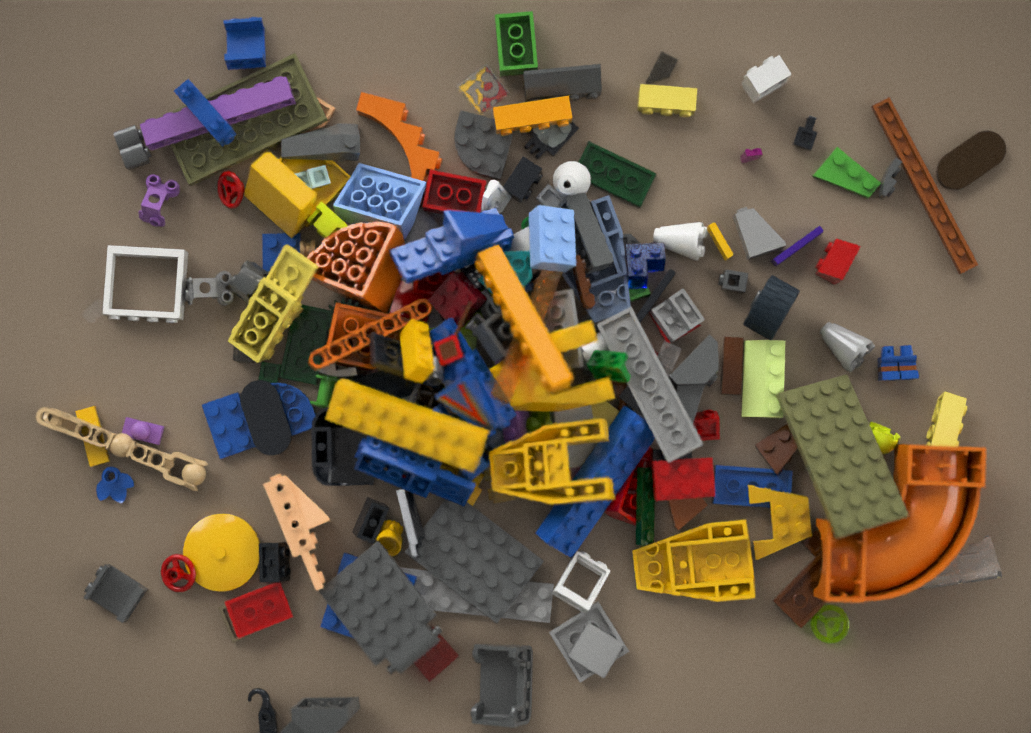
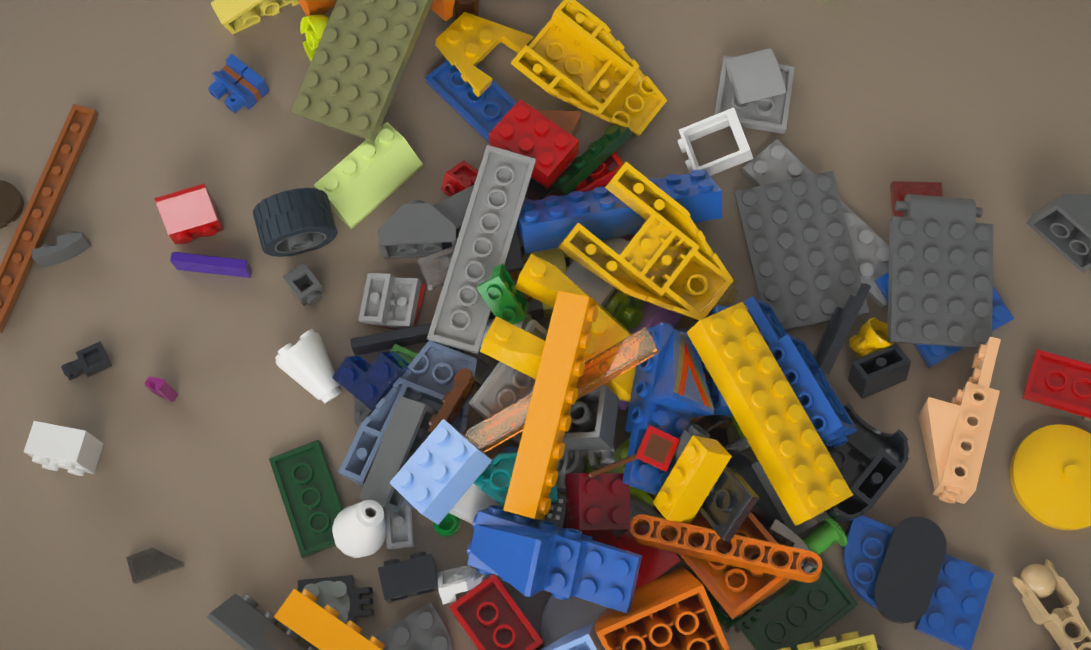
camera: 135 degrees left, 15 degrees down
(269, 372) = (863, 618): dark green tile -> none
(274, 562) = (1016, 418): black bracket -> none
(504, 685) = (873, 120): dark grey windscreen -> none
(667, 100) = (181, 523): light yellow brick -> none
(719, 241) = (277, 333): yellow tile -> none
(732, 365) = (367, 227): reddish brown tile -> none
(756, 234) = (237, 310): light grey slope -> none
(778, 448) = (416, 105): reddish brown wing -> none
(846, 173) = (93, 291): bright green wing -> none
(846, 345) = (263, 136): light grey cone -> none

